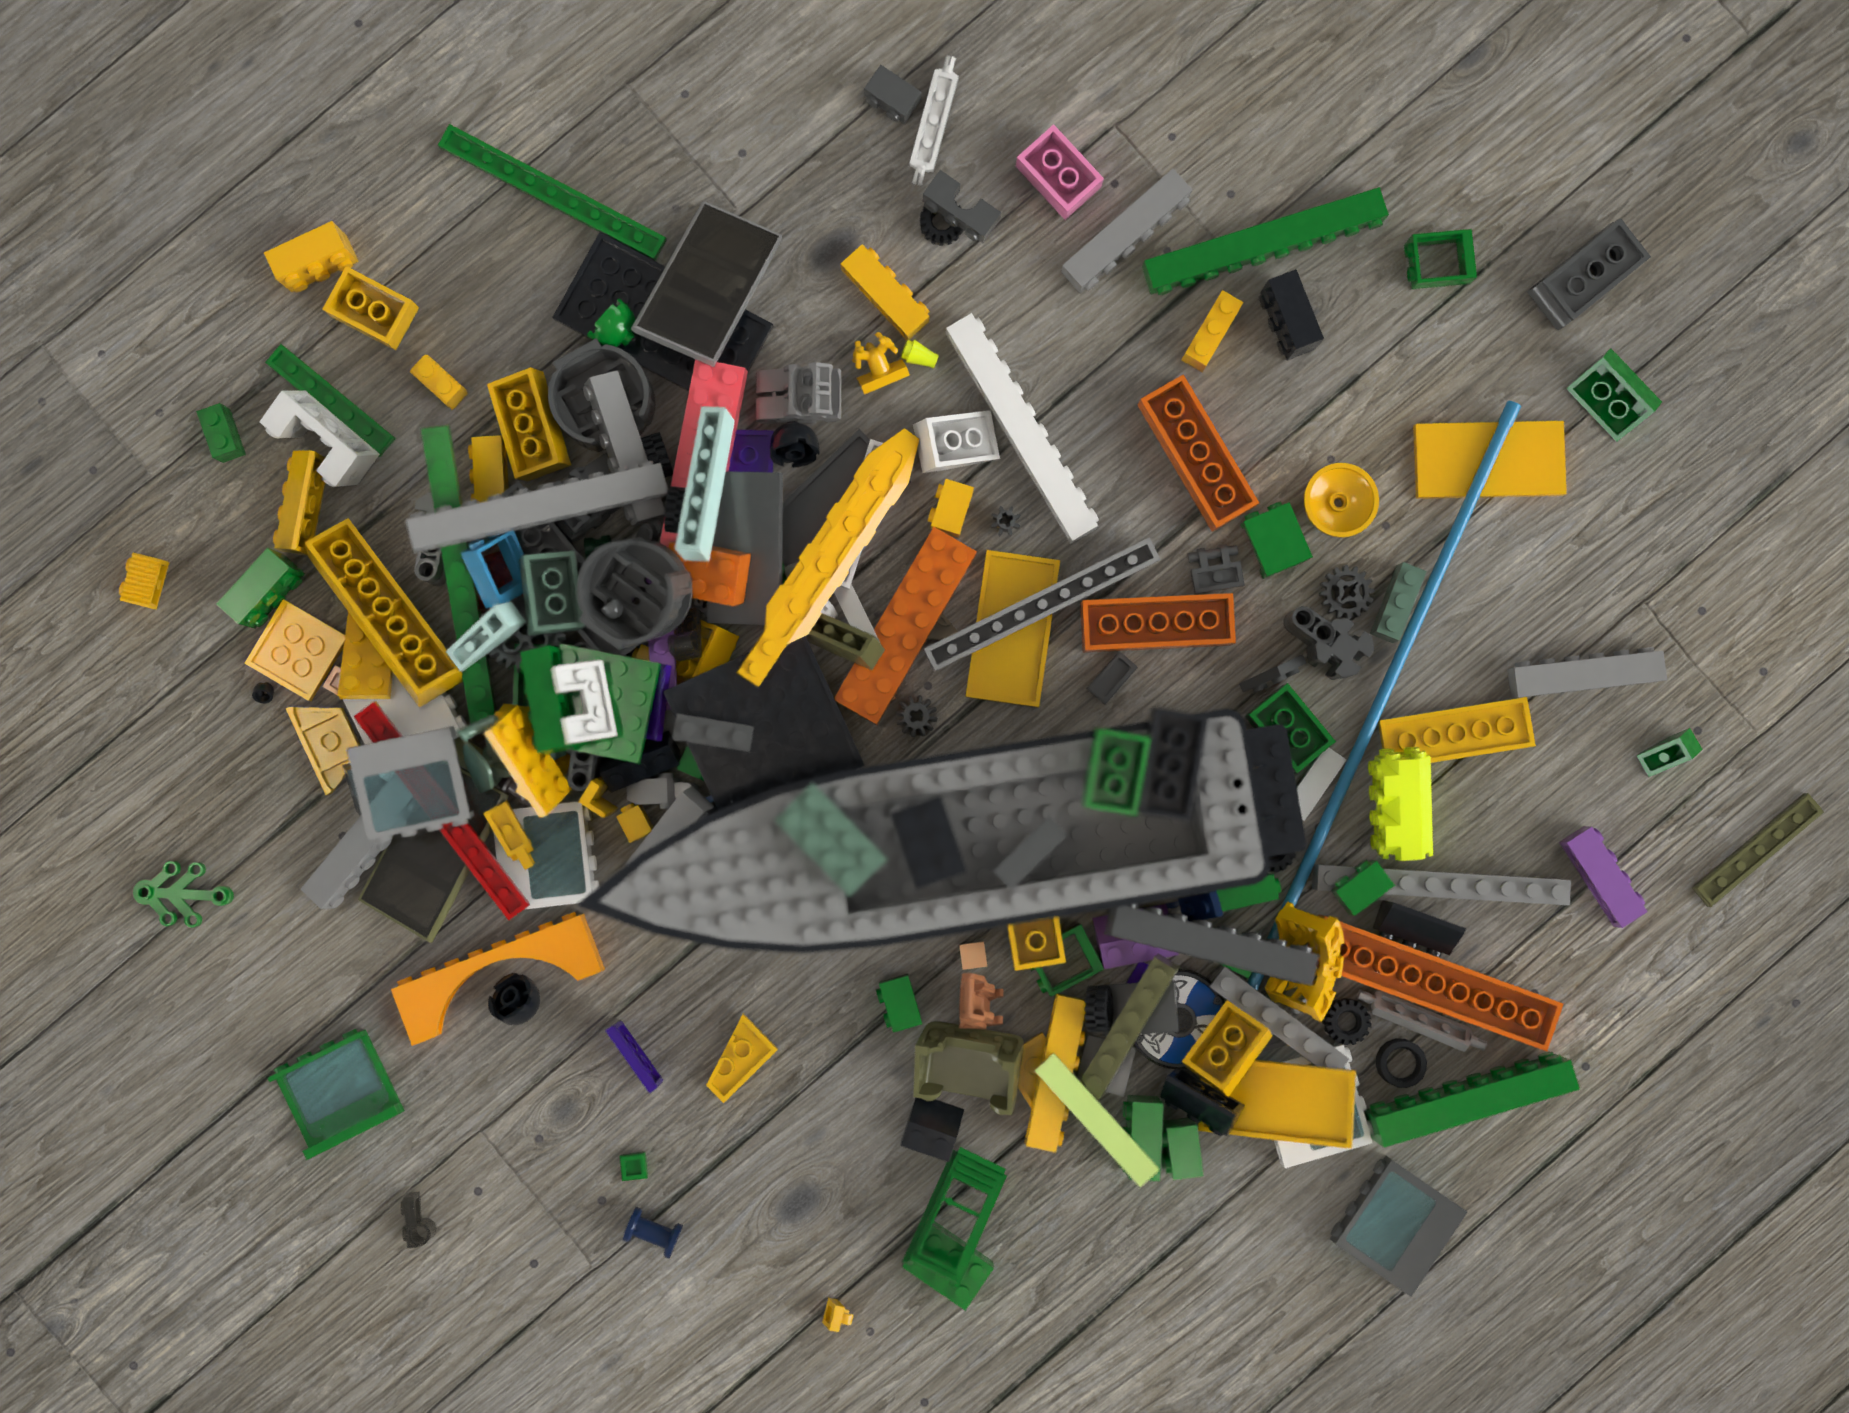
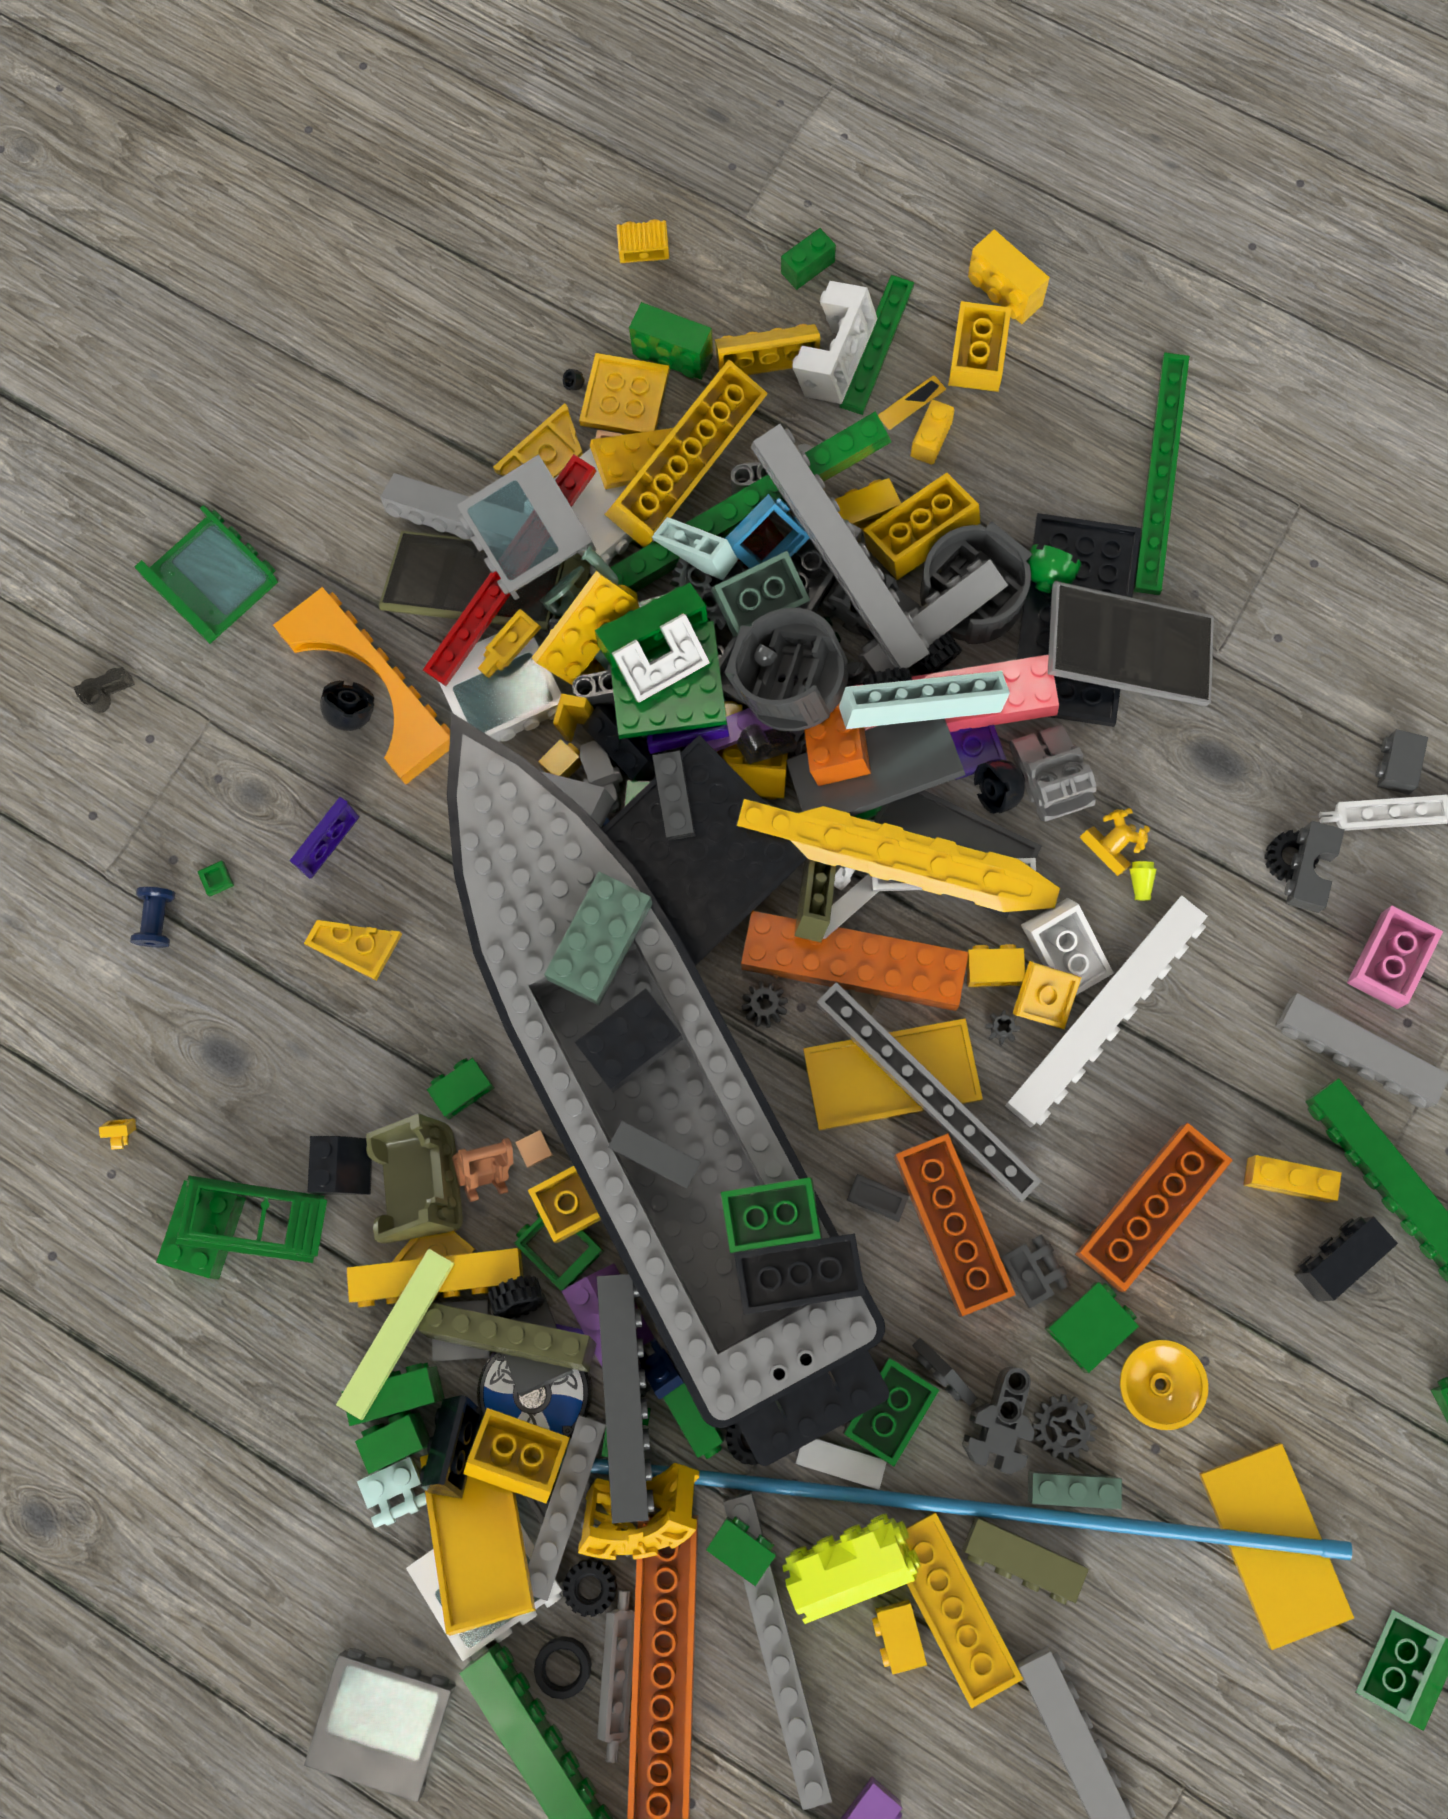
camera: 80 degrees right, 10 degrees down
(178, 893) = (356, 371): green plant -> none
(399, 389) = (911, 402): none -> yellow sticker
(885, 292) = (1194, 823): yellow brick -> none
(991, 473) = (1046, 995): none -> yellow tile
(1212, 1162) = (389, 1483): none -> light aqua plate
(1417, 928) = (717, 1635): black slope -> none
(1438, 662) = (1024, 1559): none -> olive brick
(1464, 782) = (900, 1636): none -> yellow brick

